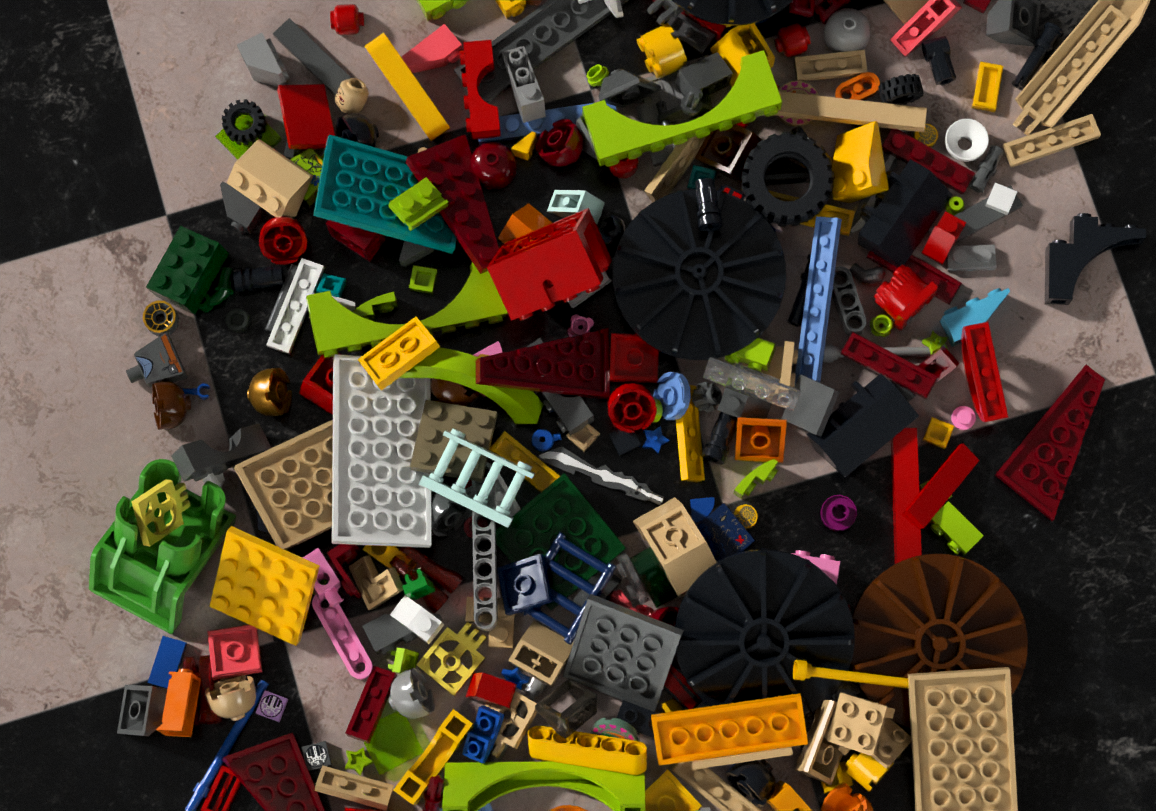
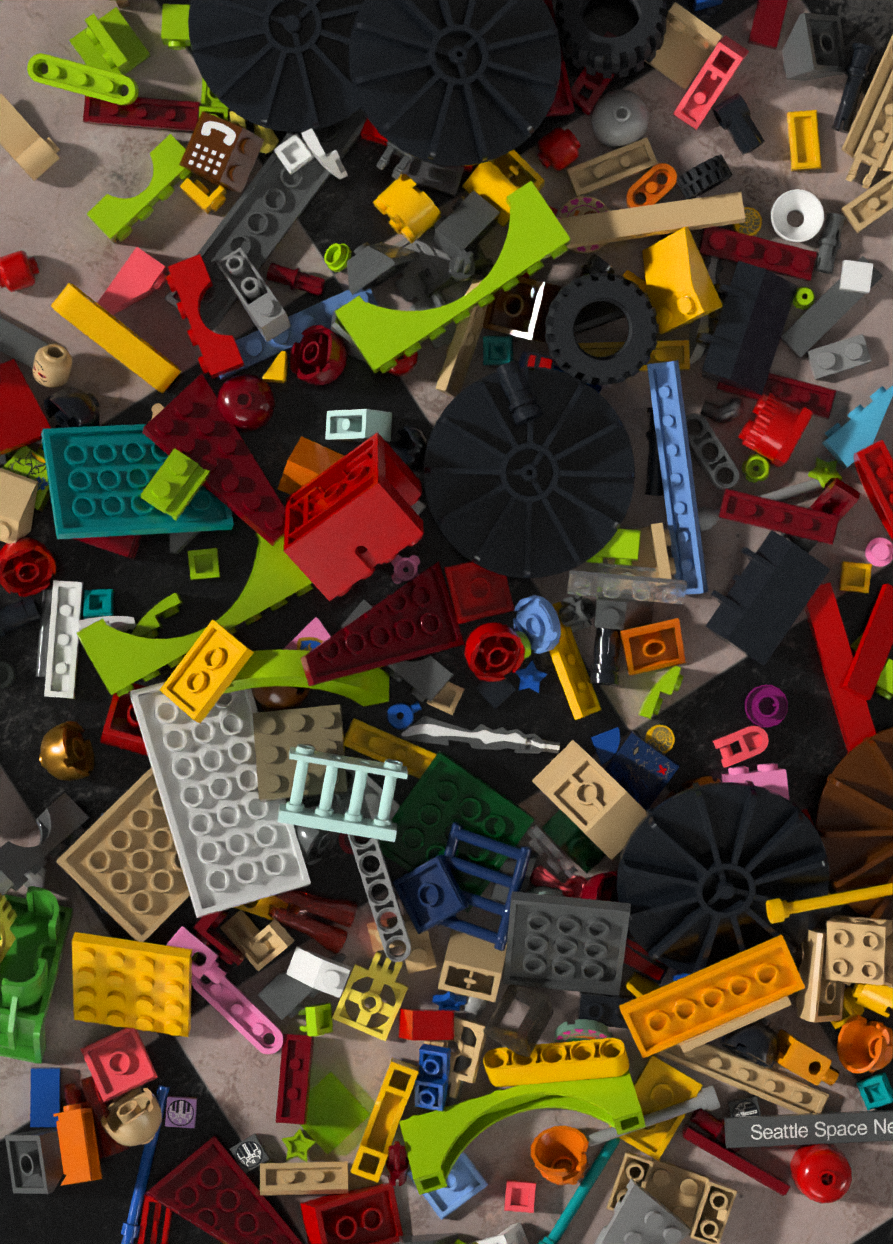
camera: 20 degrees left, 10 degrees up
(410, 695) = (337, 1057): light grey cylinder -> none
(418, 588) = (311, 935): green tile -> none
(559, 83) = (295, 279): none -> dark red axle
(812, 406) = (705, 591): dark grey tile -> none
(819, 538) = (751, 740): none -> coral plate
(943, 238) = (801, 343): red slope -> none

